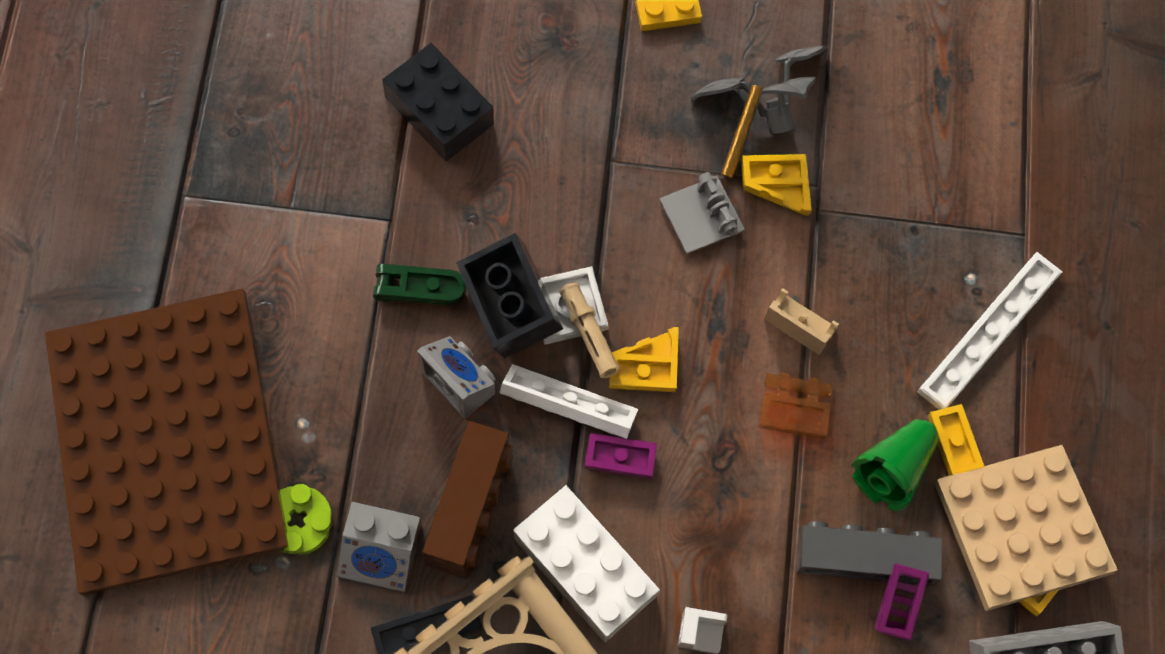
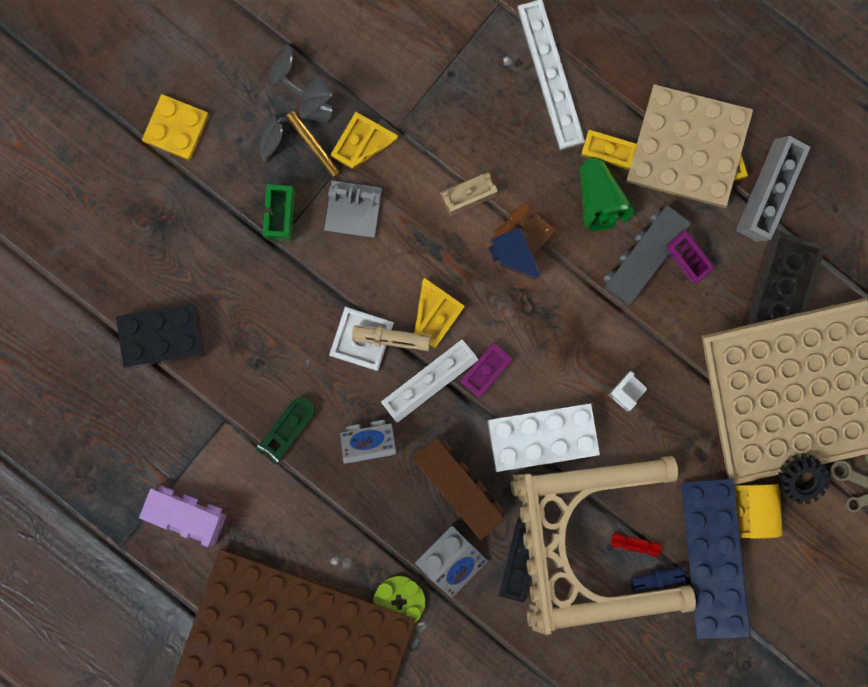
camera: 50 degrees left, 15 degrees up
(258, 233) = (183, 515): none -> lavender wedge
(509, 296) = (336, 376): black brick -> none
(659, 133) = (280, 202): none -> green piece
(769, 401) = (514, 254): none -> dark blue slope

